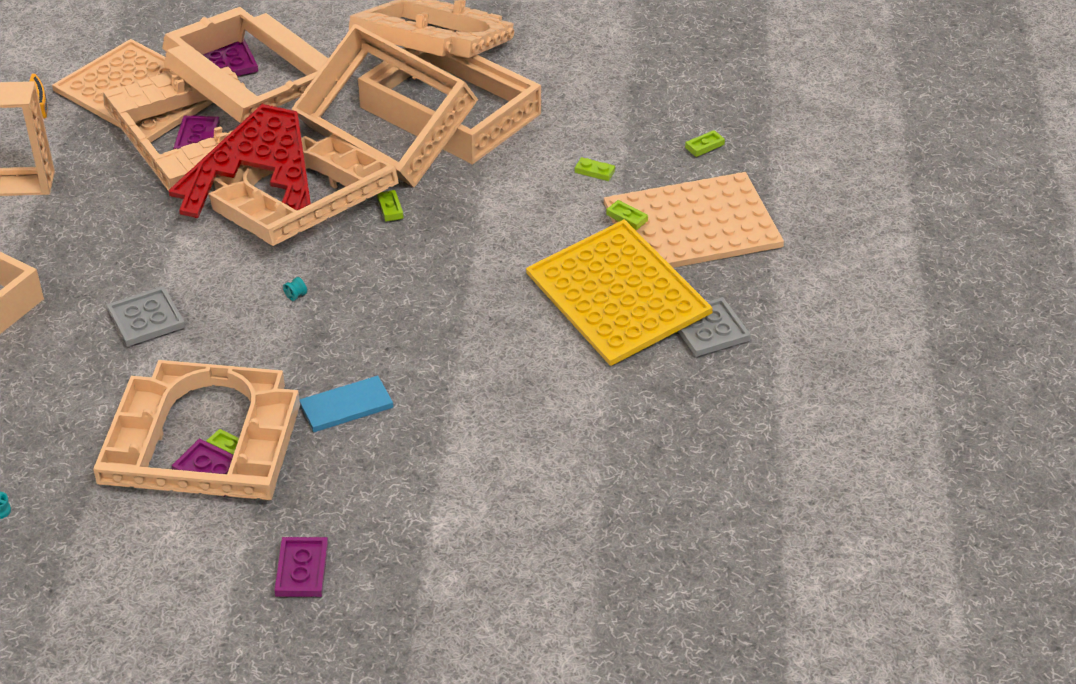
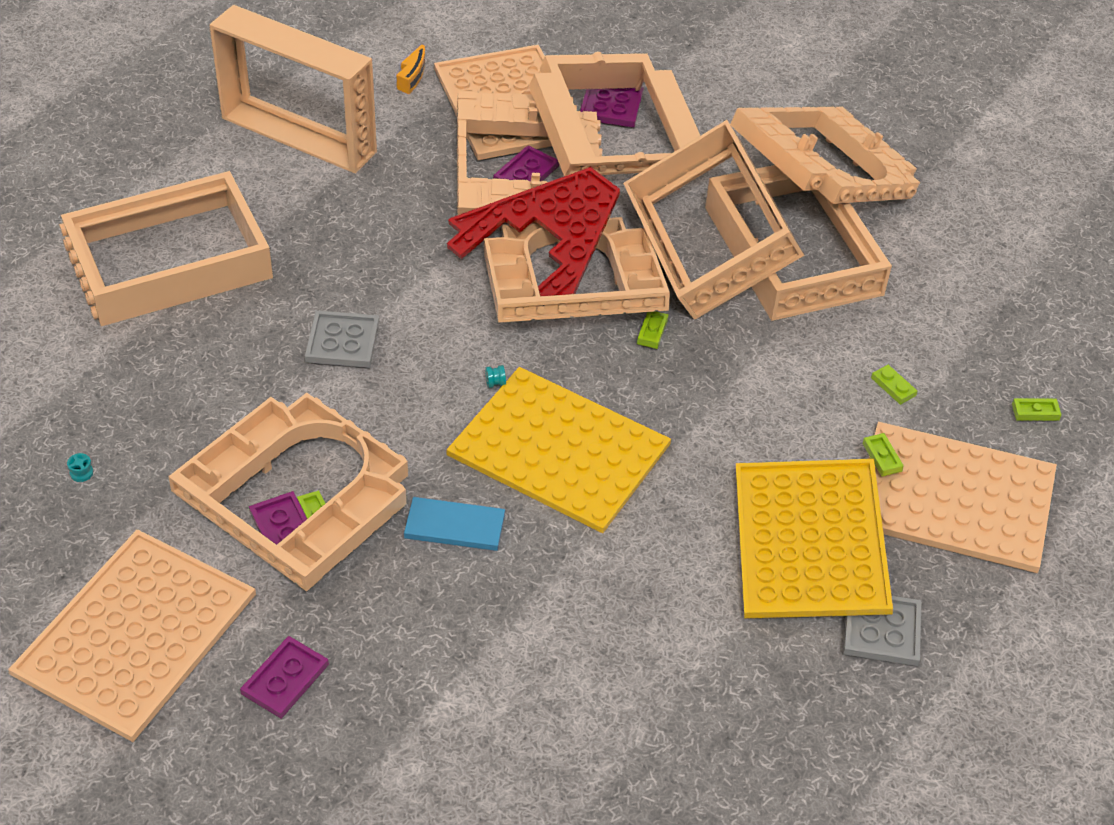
camera: 30 degrees right, 5 degrees up
(149, 599) = (133, 634): none -> light nougat plate
(383, 317) = (559, 448): none -> yellow plate

